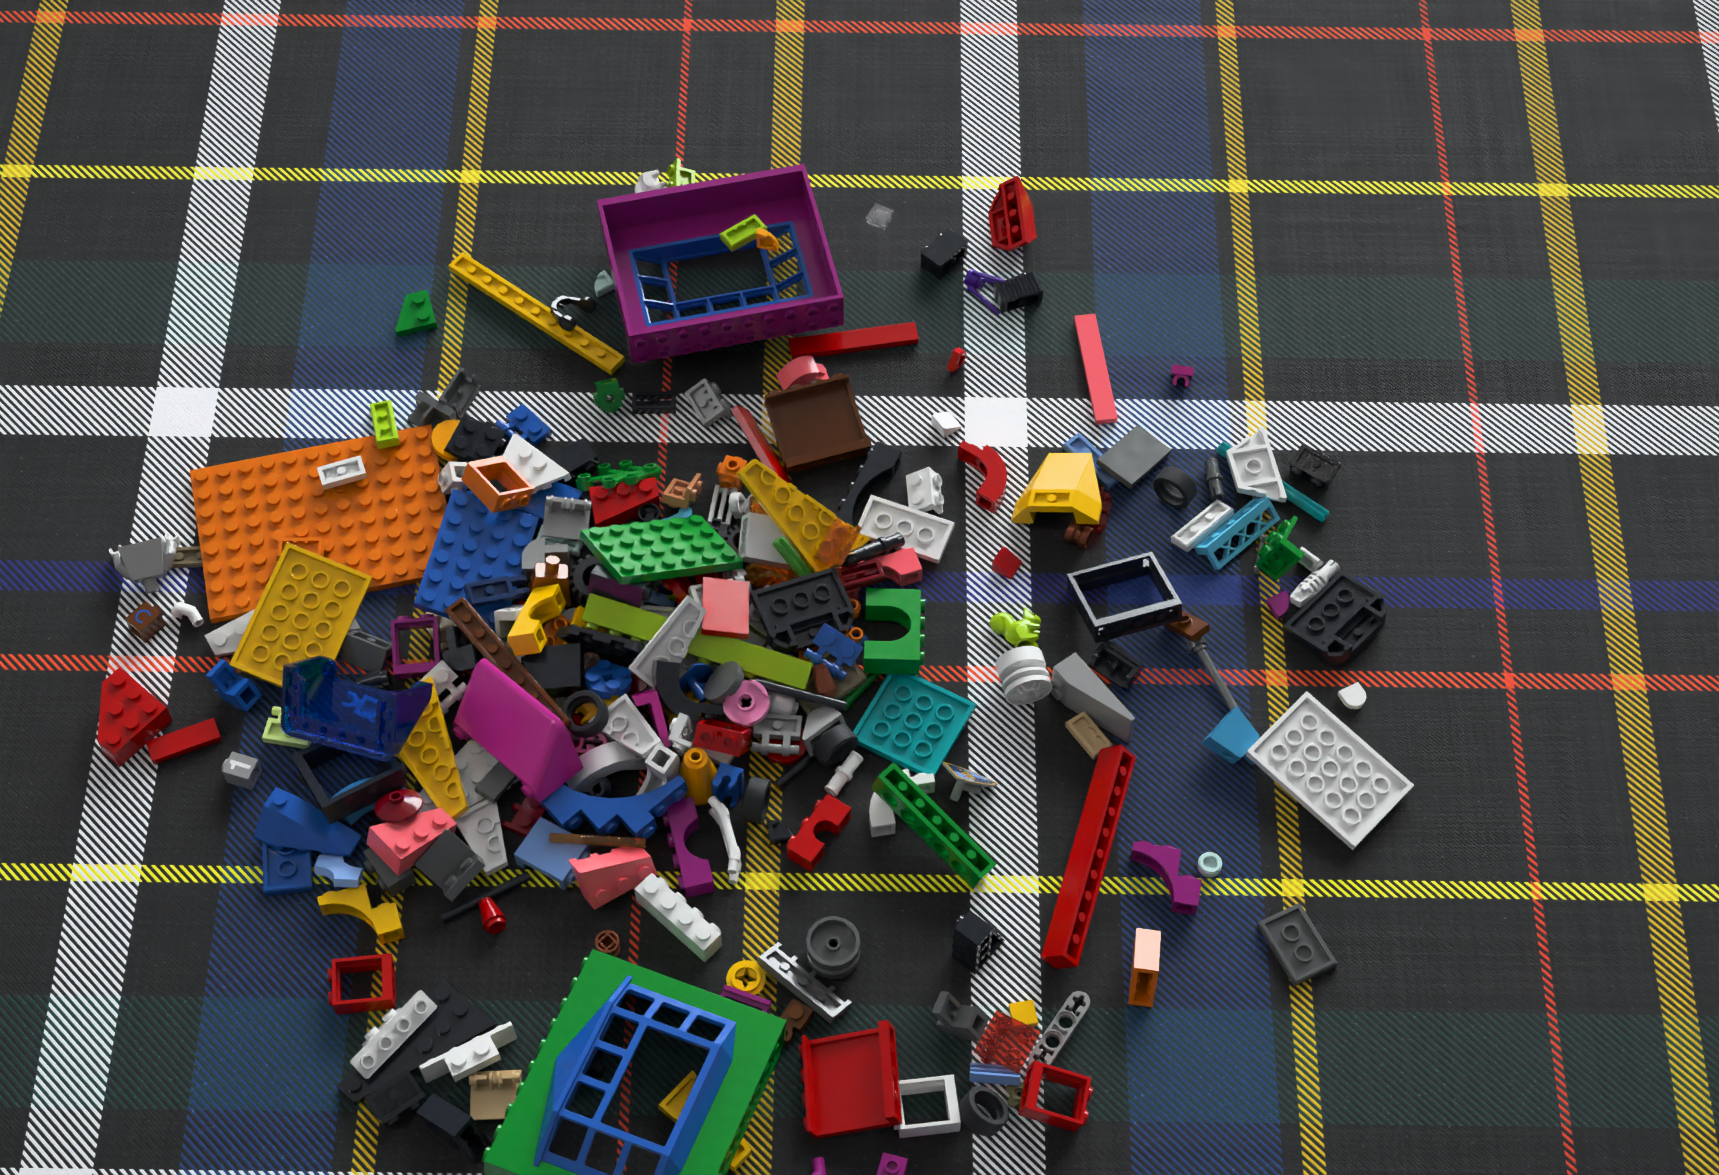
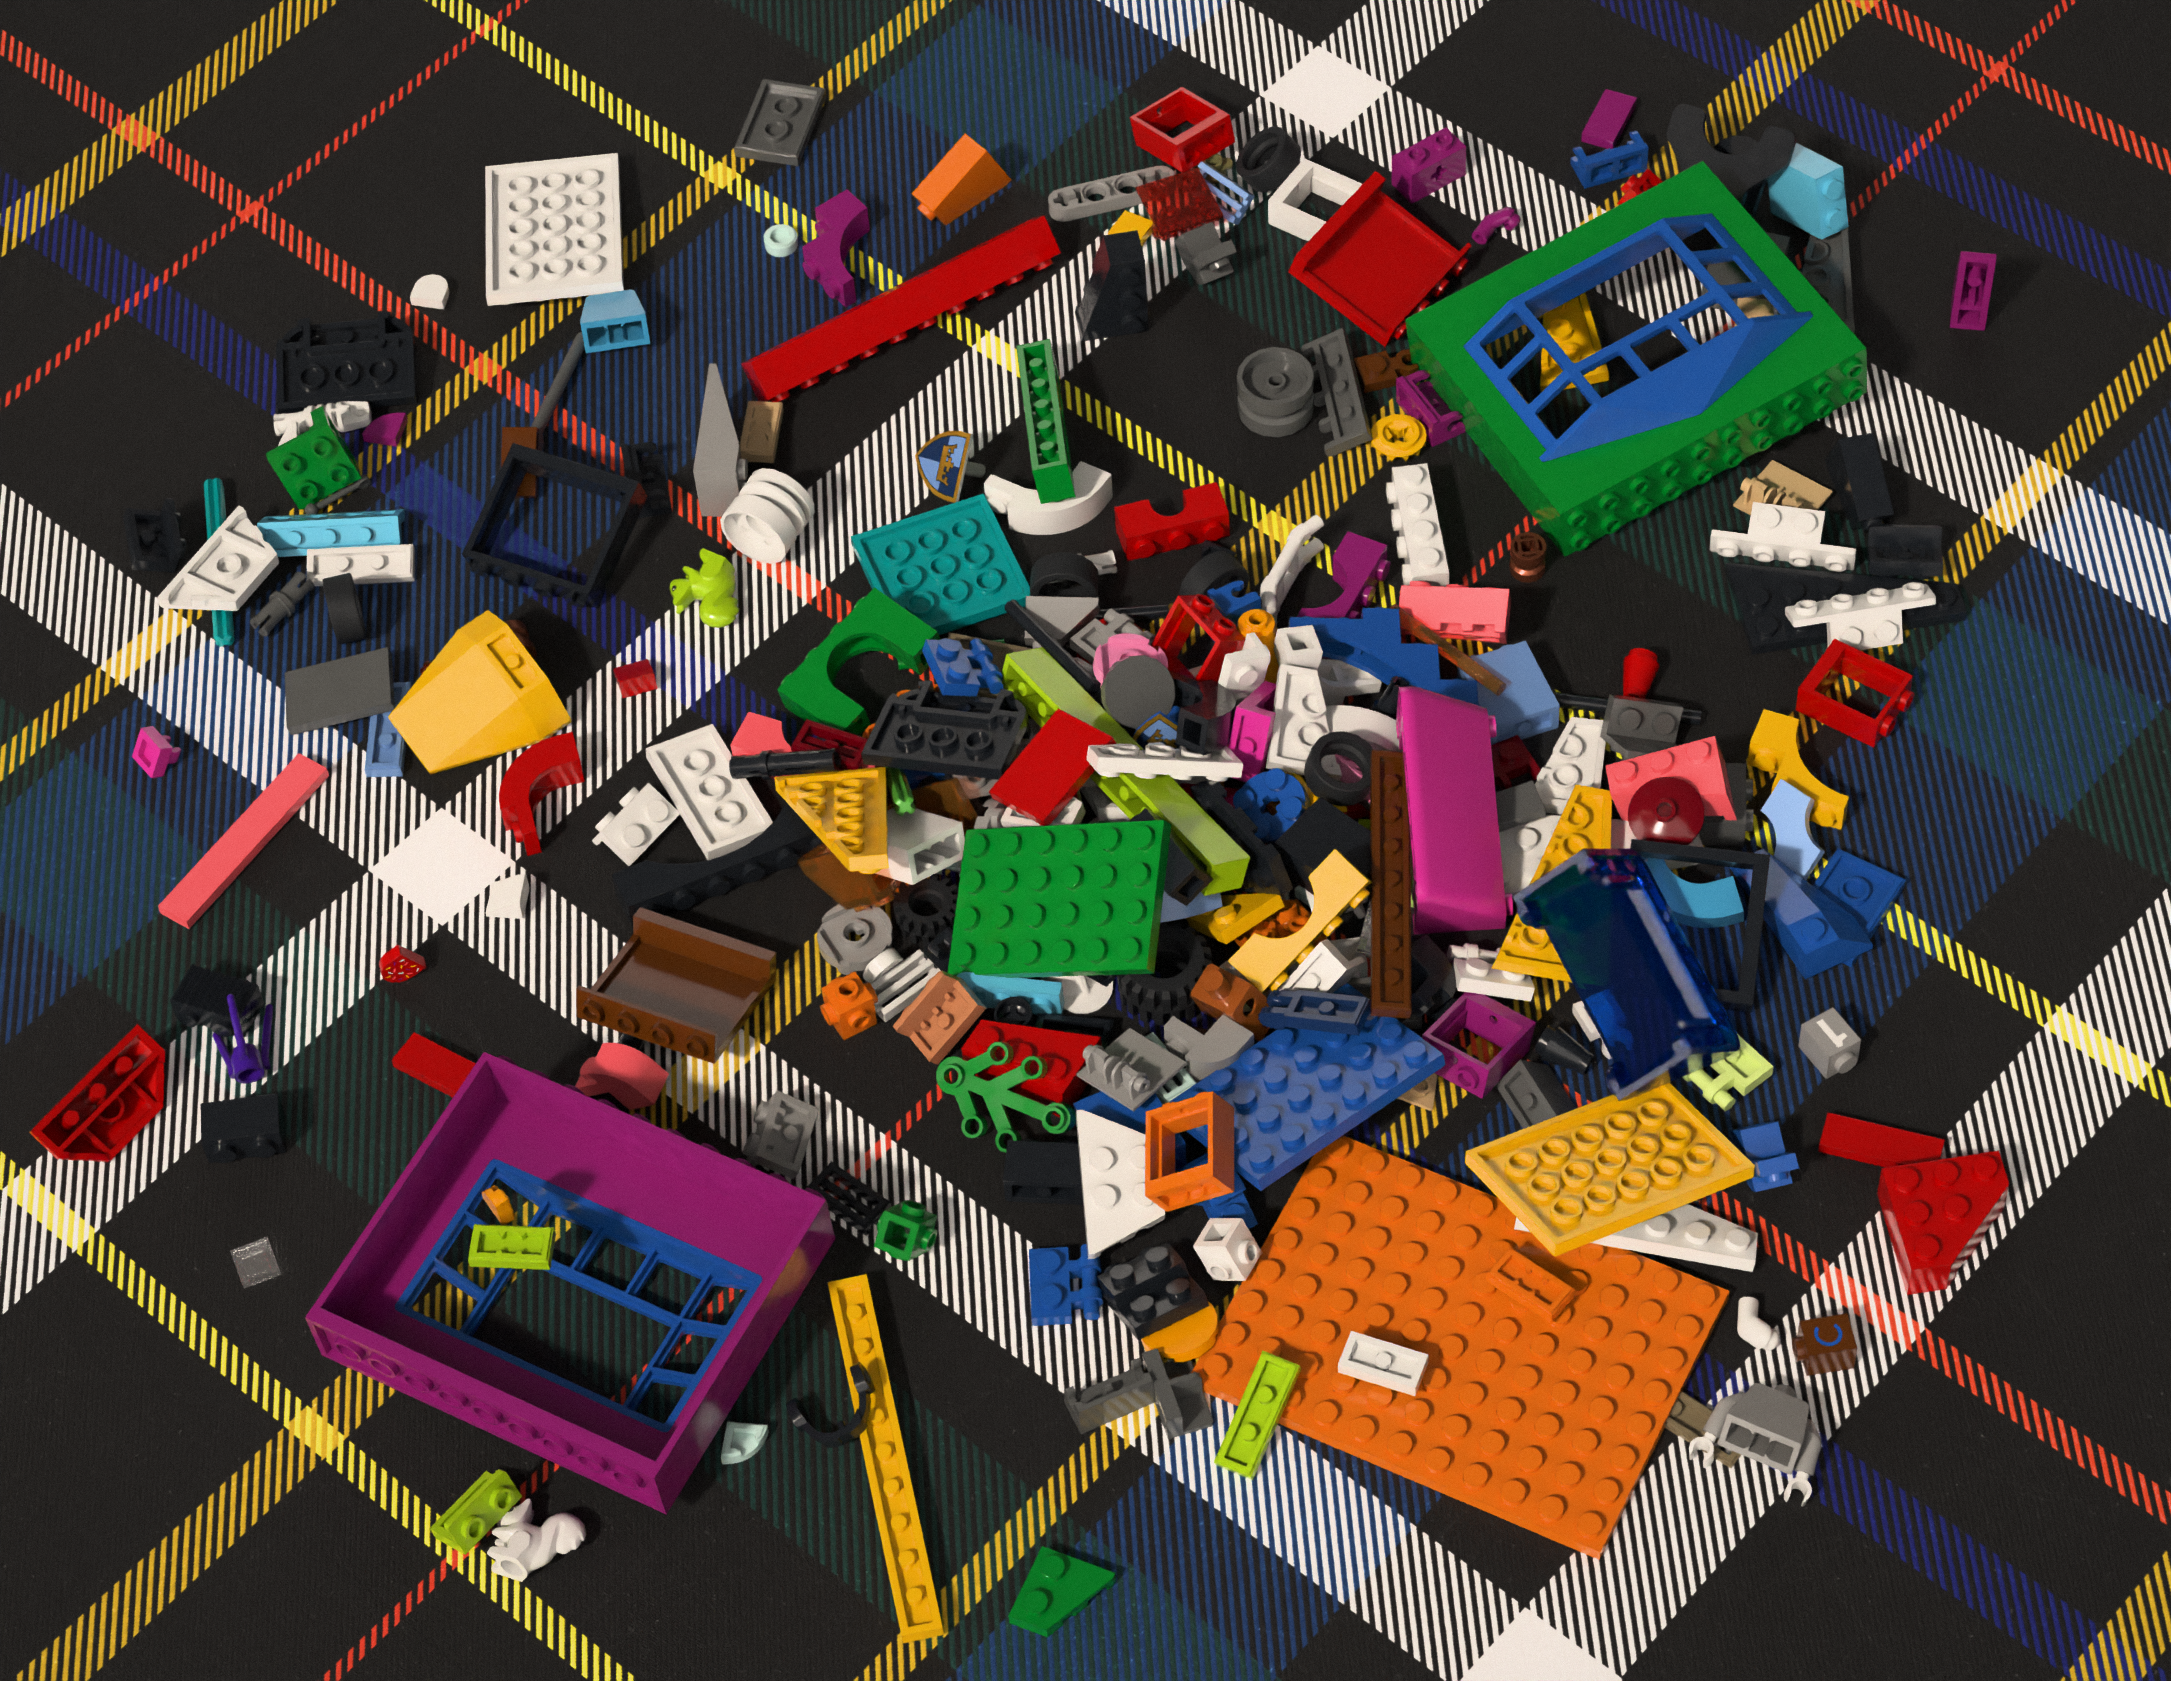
camera: 135 degrees left, 5 degrees down
(758, 441) = (781, 1000): red tile -> none
(823, 681) = (1009, 640): copper cone -> none
(837, 543) = (828, 764): clear orange panel -> none

